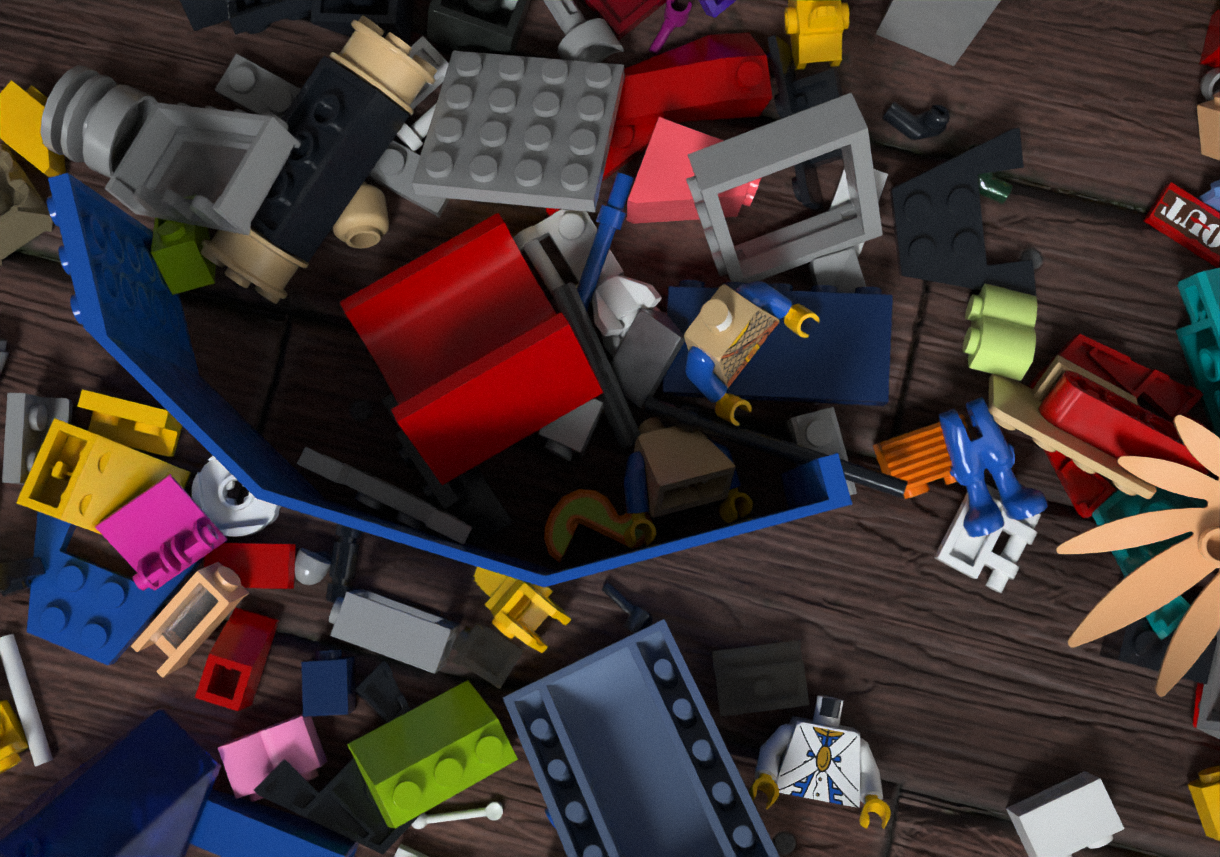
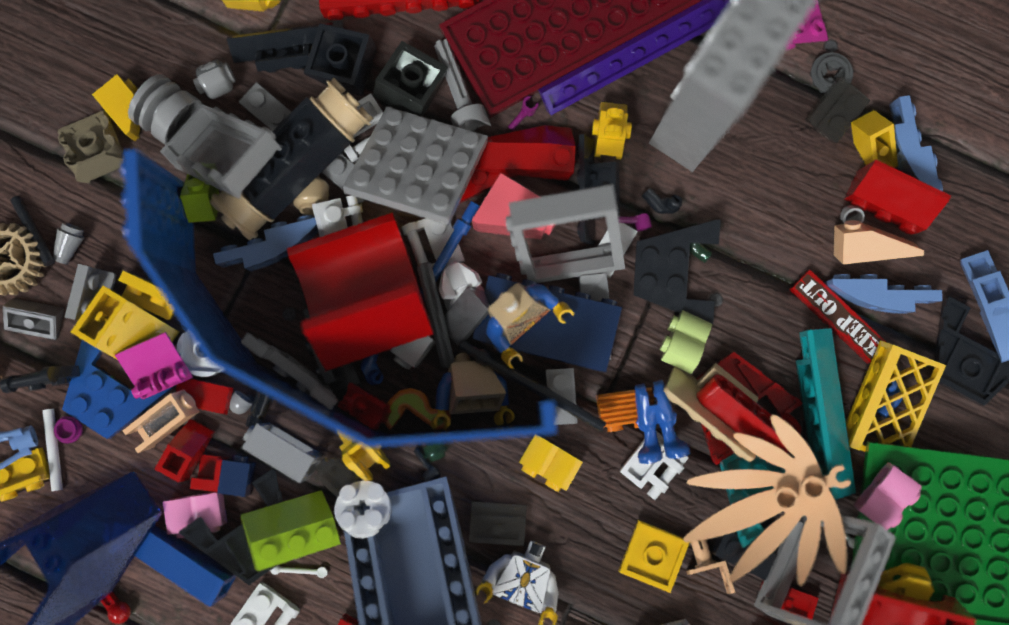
camera: 10 degrees right, 0 degrees up
(43, 662) = (68, 429): none -> magenta plate
(168, 60) = (214, 79): none -> light grey head
(282, 688) = (208, 473): none -> red panel
(302, 321) = (262, 253): none -> medium blue slope
(399, 239) = (331, 214): none -> white plate
(509, 474) = (371, 370): none -> blue arm
(513, 532) = (364, 406): none -> red hips
(563, 709) = (351, 497): none -> white plate
(636, 581) = (434, 450): none -> clear green plate
(824, 565) = (549, 462): none -> yellow brick
(891, 158) = (641, 221): none -> magenta hand
(1017, 681) = (653, 556): none -> yellow plate
(1101, 676) = (706, 562): none -> light nougat bracket

